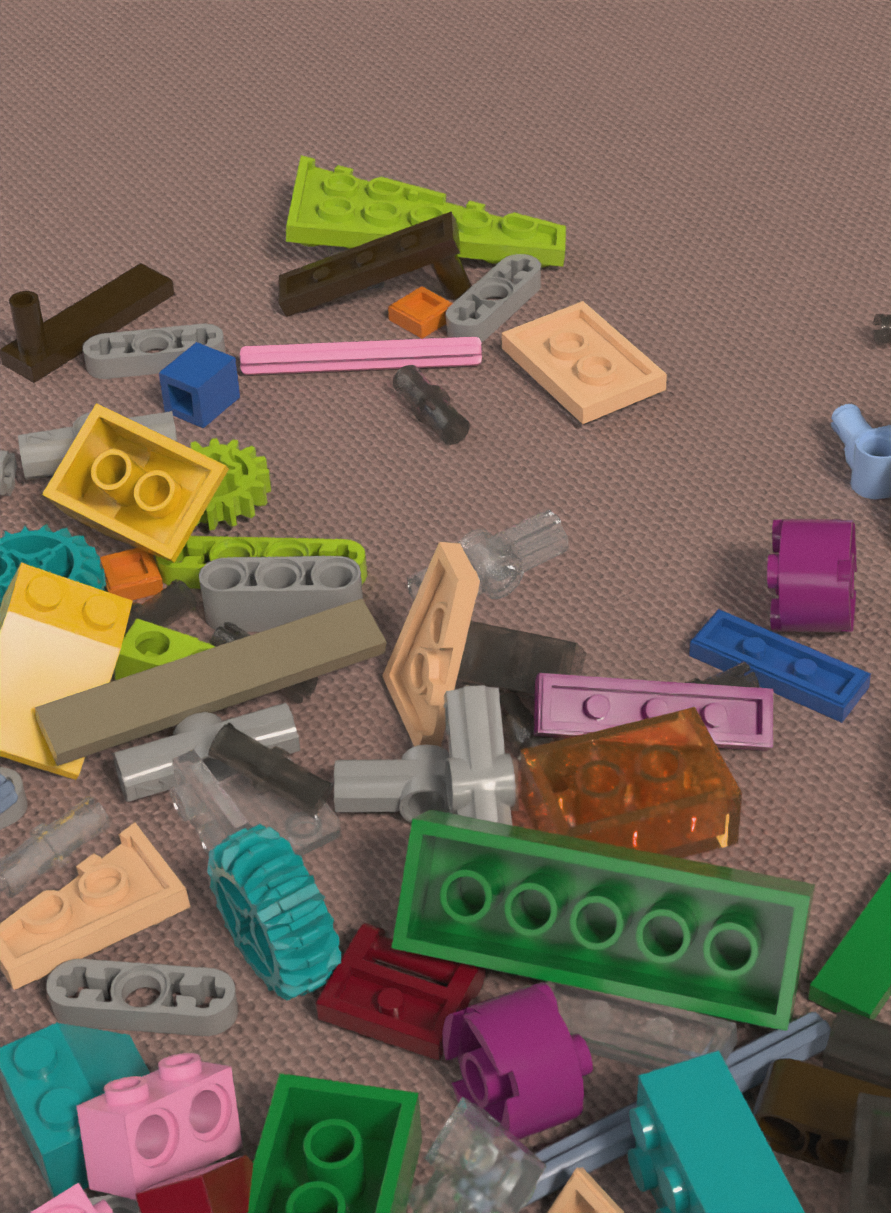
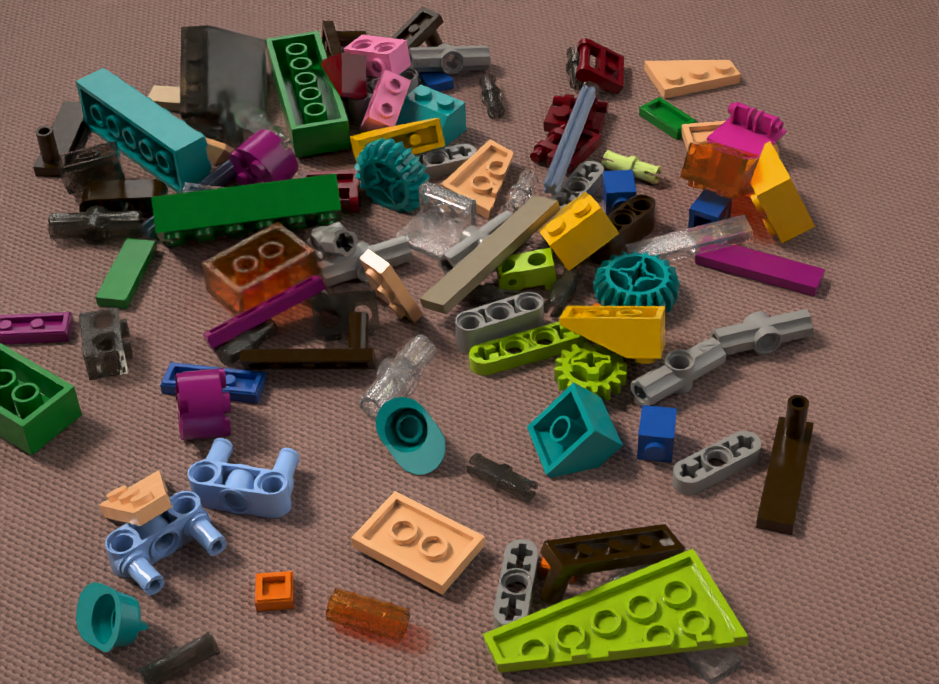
camera: 155 degrees right, 0 degrees up
(238, 1030) = (418, 135): none -> yellow slope
(270, 769) = (434, 226): clear smoke pin -> none
(302, 413) = (574, 433): none -> teal slope
(360, 355) = (574, 504): bright pink axle -> none
(516, 474) = (410, 435): none -> teal piece
(612, 626) = (354, 357): none -> dark brown piece
(684, 306) = (368, 614): none -> clear orange axle
(782, 473) = (243, 487): none -> light blue piece
(784, 373) = (274, 591): none -> orange tile

